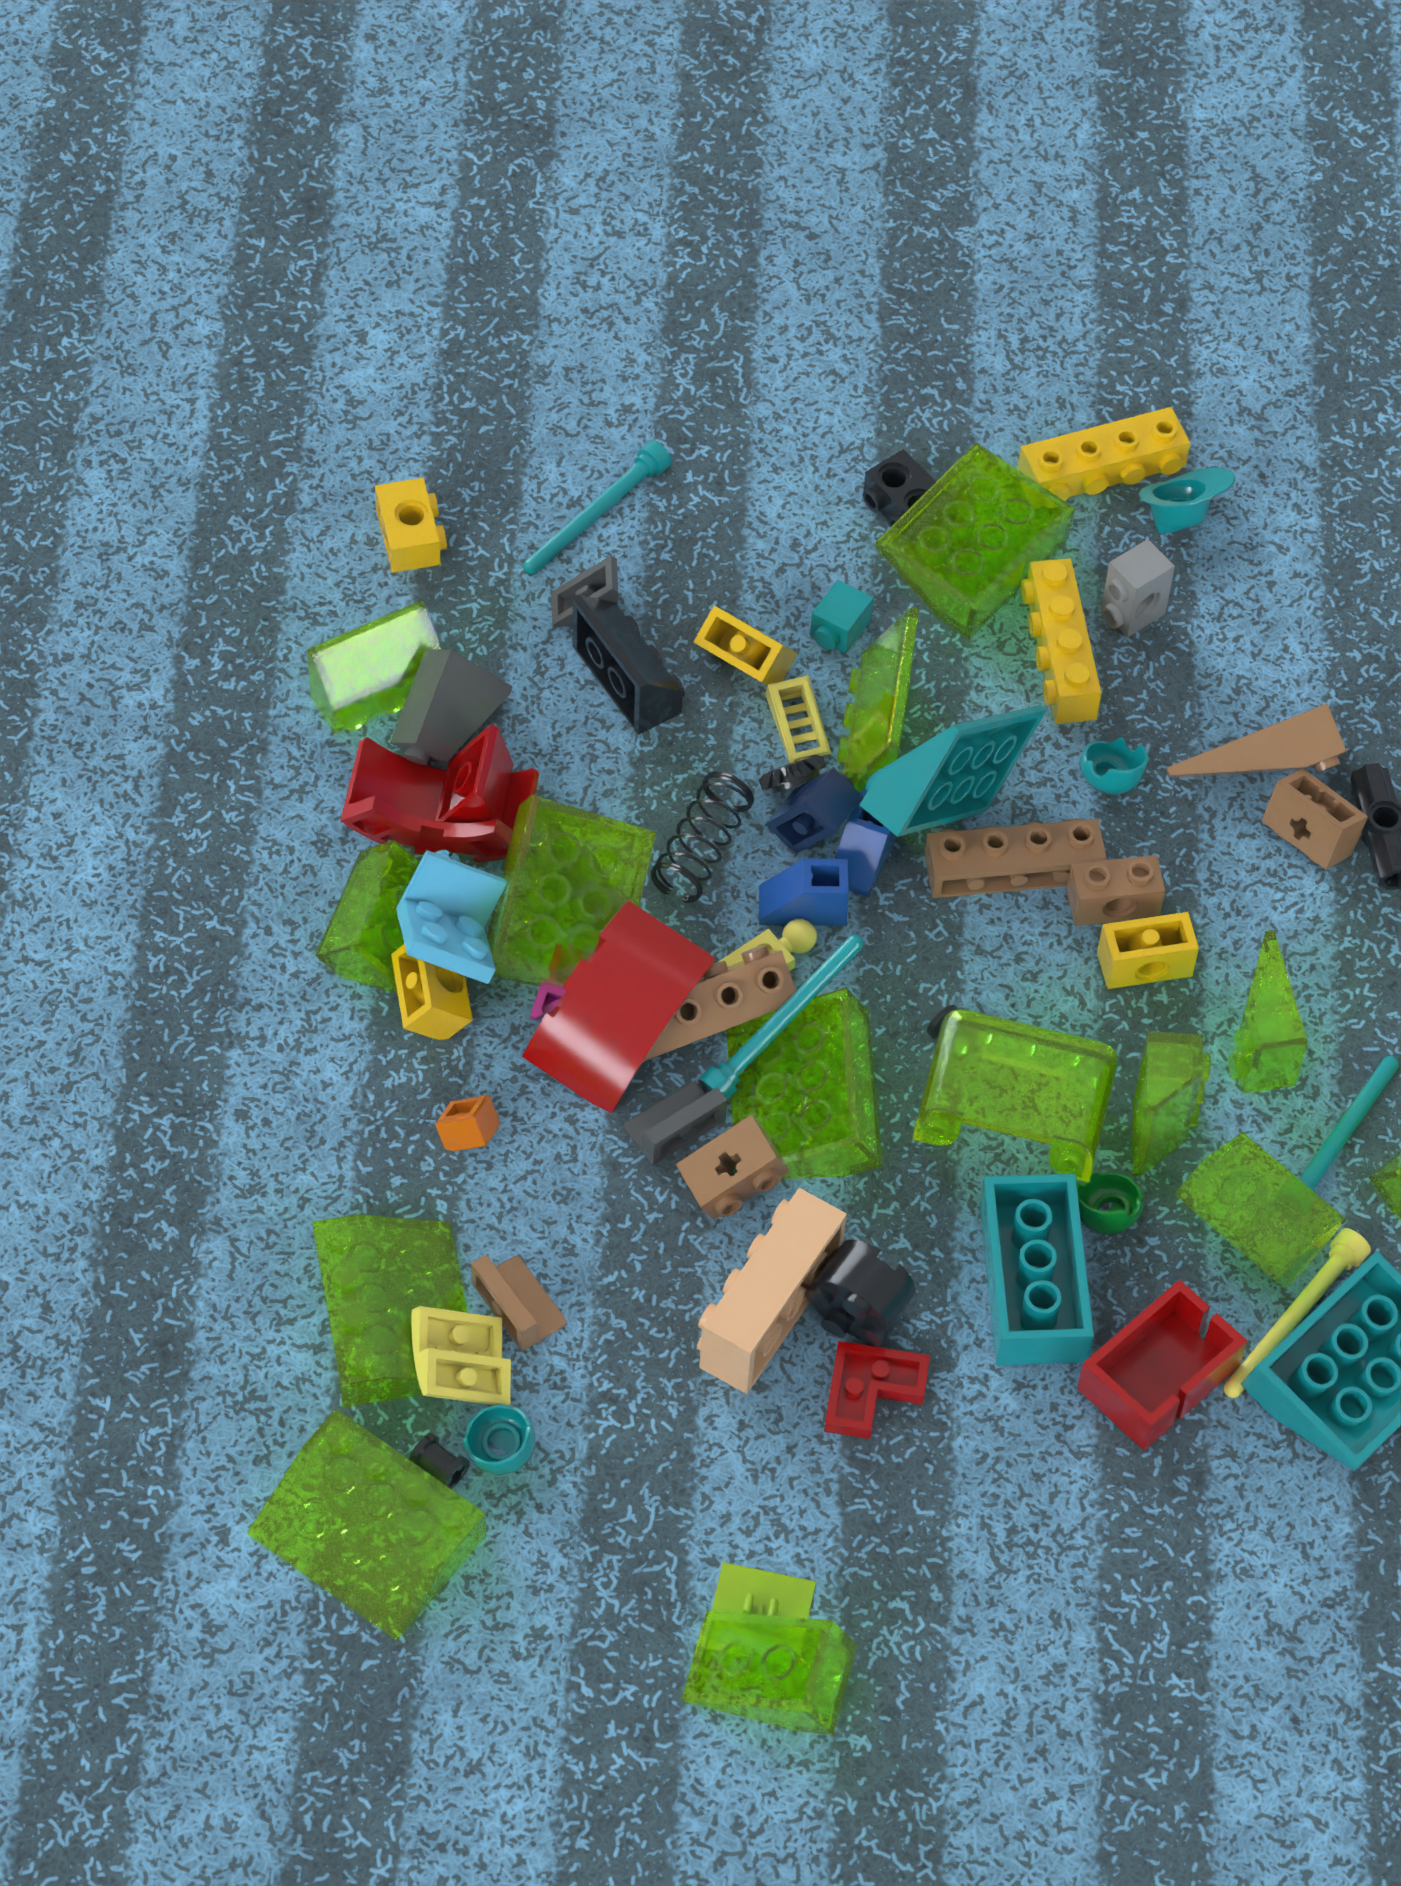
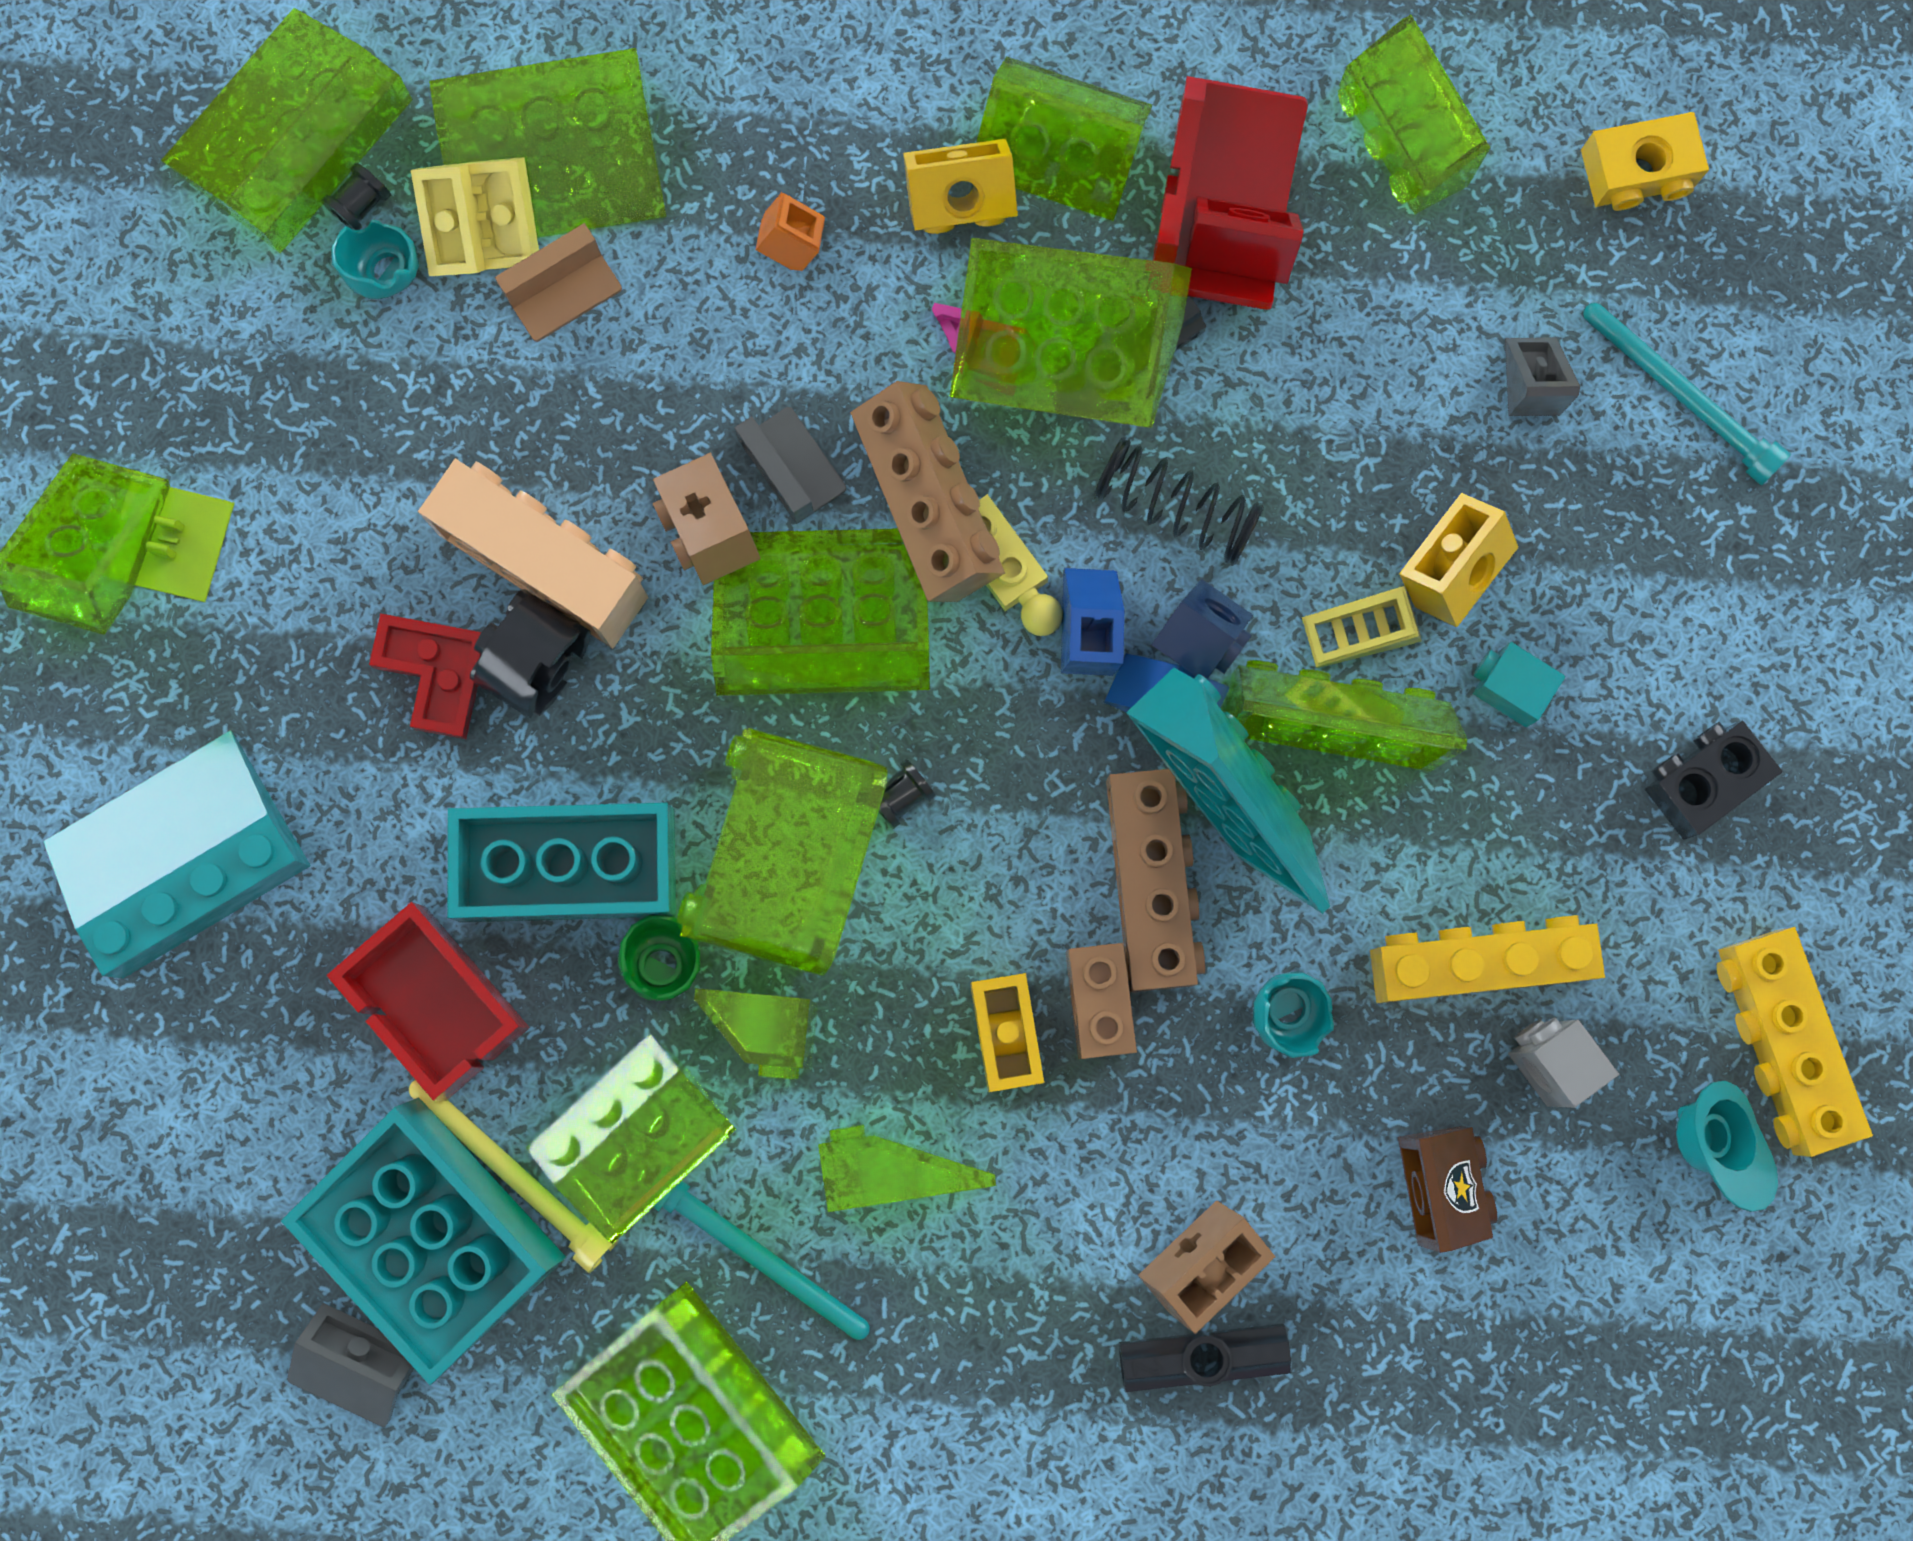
camera: 90 degrees right, 25 degrees up
(446, 706) = (1359, 200): dark grey slope -> none
(447, 914) = (1029, 187): medium azure plate -> none
(617, 1006) = (924, 391): red panel -> none
(625, 663) = (1435, 414): black slope -> none
(726, 1075) = (839, 516): teal piece -> none
(792, 774) = (1269, 612): black gear -> none
(975, 538) = (1642, 857): clear neon green slope -> none
(1050, 1583) = (172, 857): none -> slope
(1237, 670) = (1447, 1188): none -> reddish brown slope
(1285, 746) = (1315, 1248): medium nougat wedge -> none

